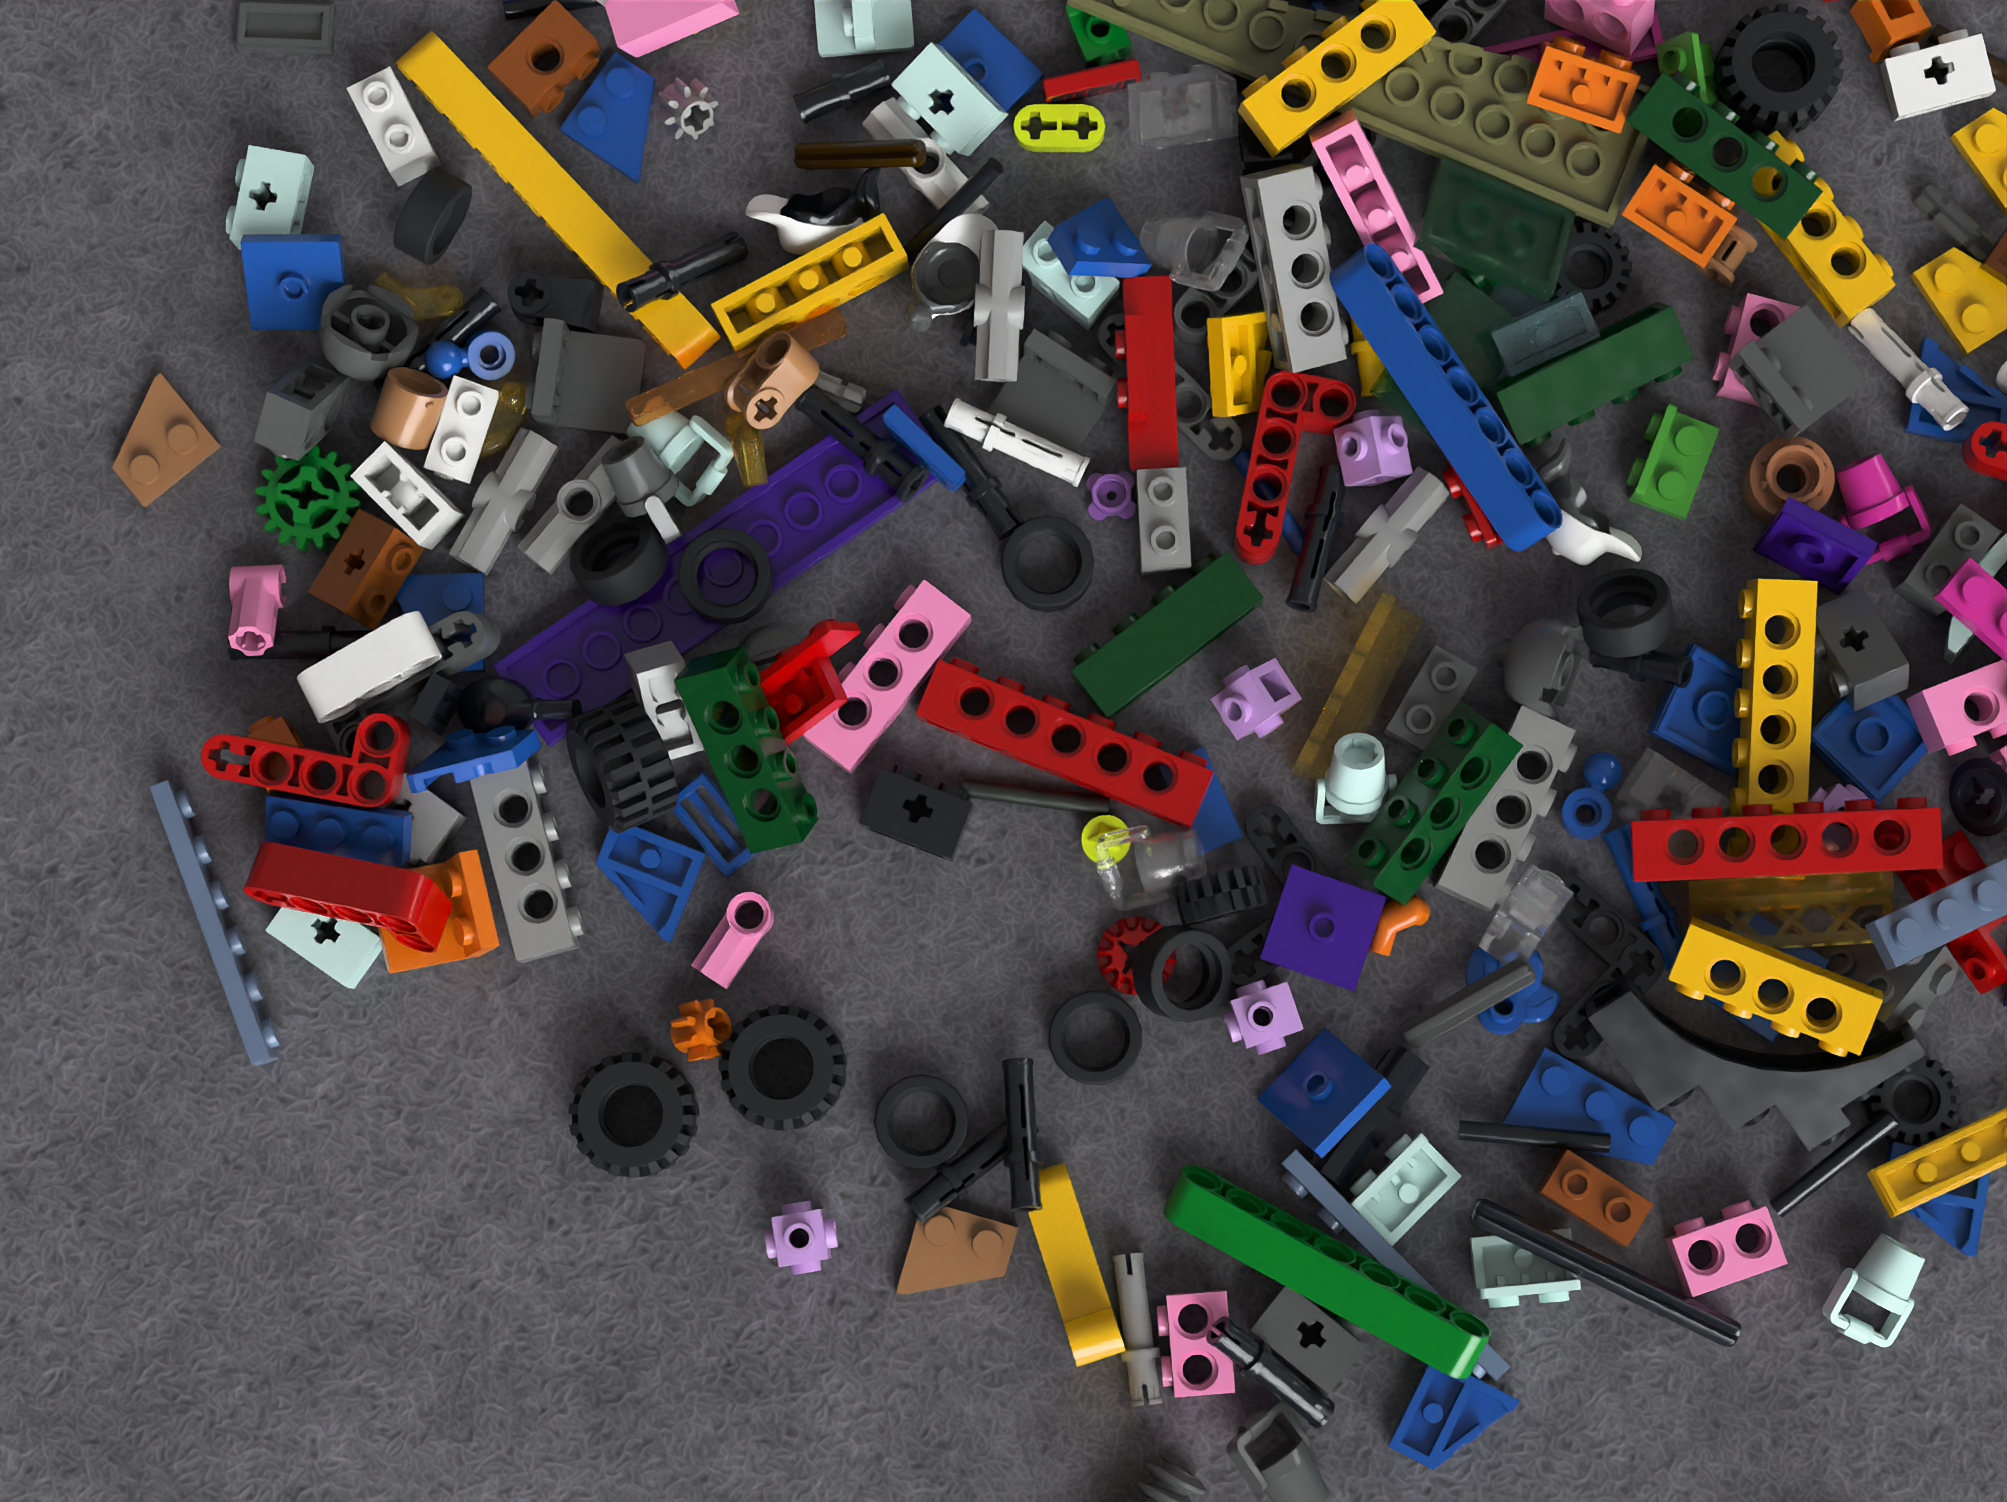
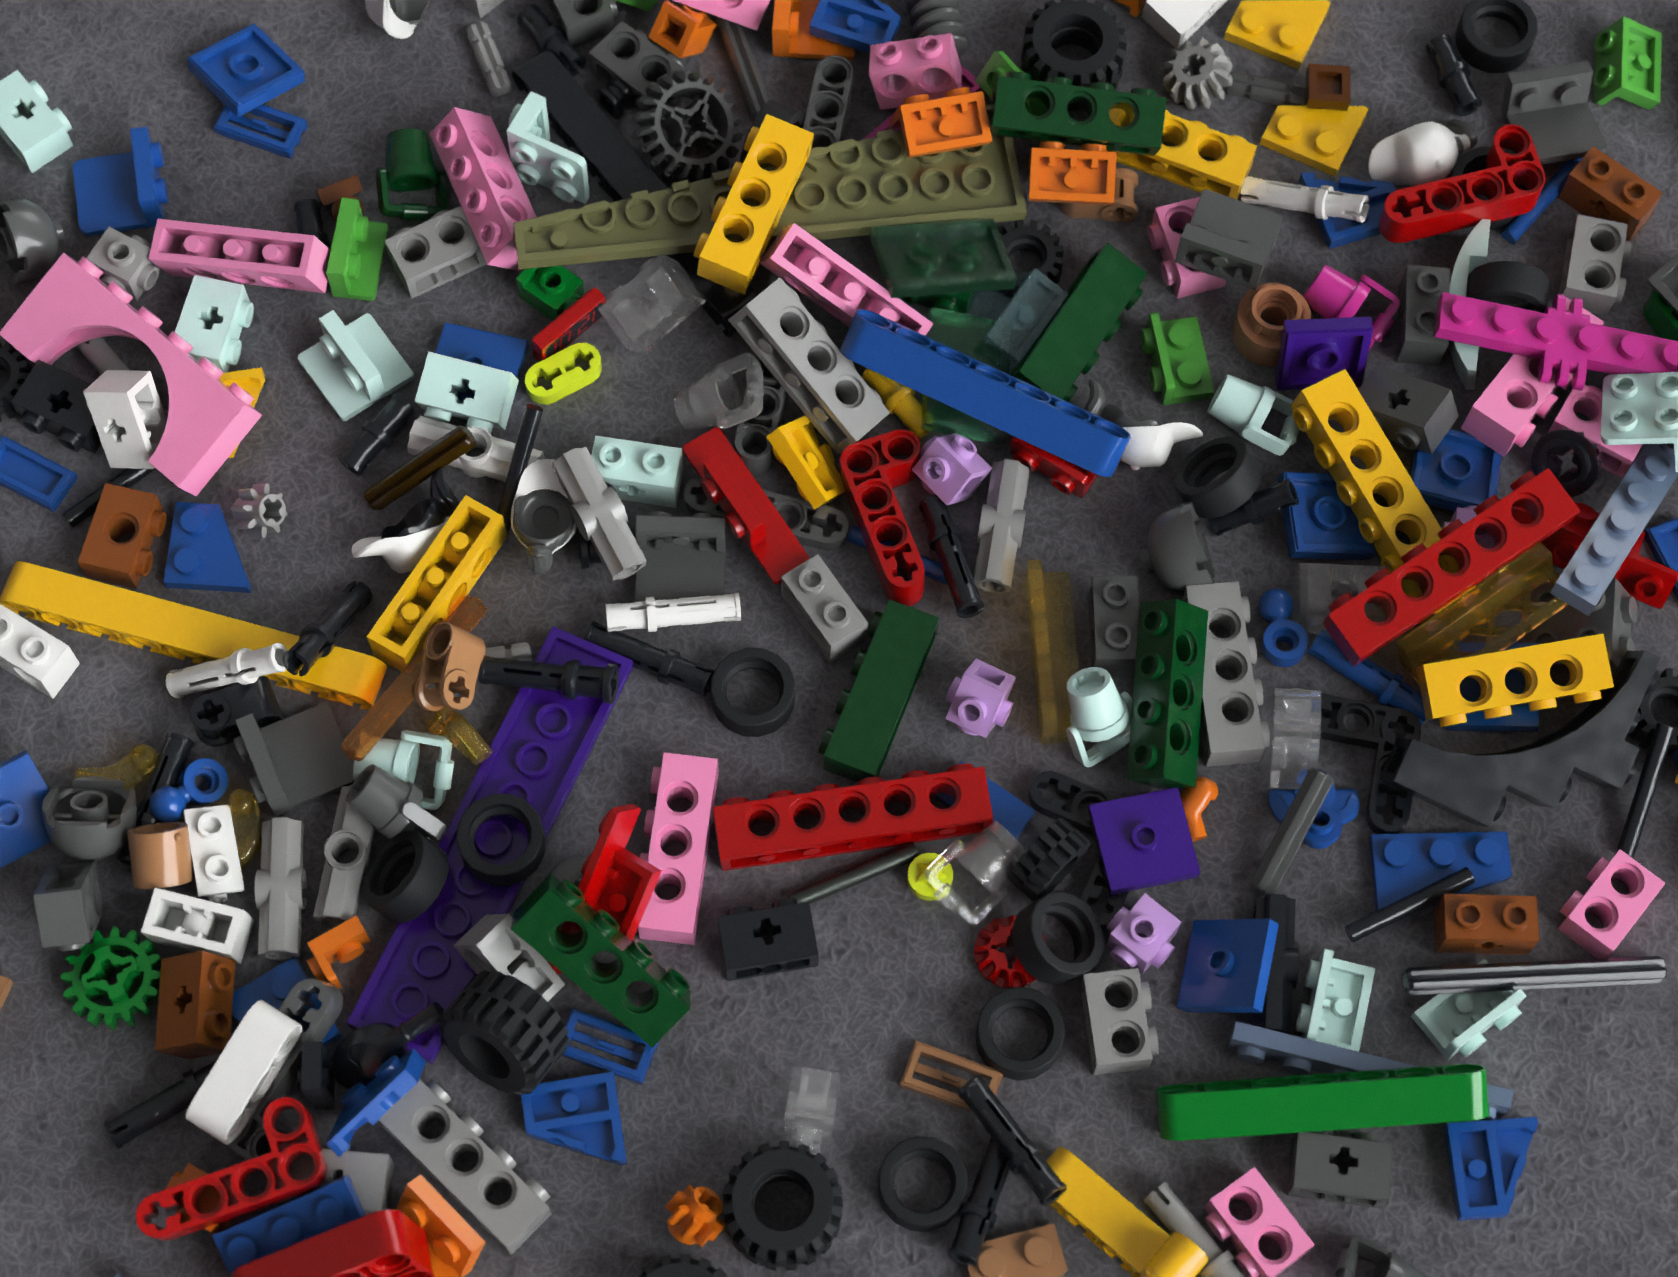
camera: 40 degrees left, 15 degrees down
(255, 606) = (115, 1089): bright pink piece -> none
(432, 216) = (95, 698): black tyre -> none
(529, 586) = (340, 943): none -> orange bracket
(579, 266) = (242, 667): none -> white pin
(730, 943) = (678, 1128): bright pink piece -> none
(857, 999) = (812, 1108): none -> clear brick
(923, 448) = (599, 651): blue tile -> none
(982, 1008) = (949, 1059): none -> medium nougat tile
(1099, 244) = (649, 431): blue wing -> none
(1117, 483) = (770, 603): medium lavender plate -> none
(1180, 1076) = (1106, 1021): none -> light grey brick
(1255, 1360) = (1315, 1207): black pin -> none
(1701, 557) = (1245, 409): none -> light aqua piece
(1900, 179) = (1202, 59): none -> light grey gear

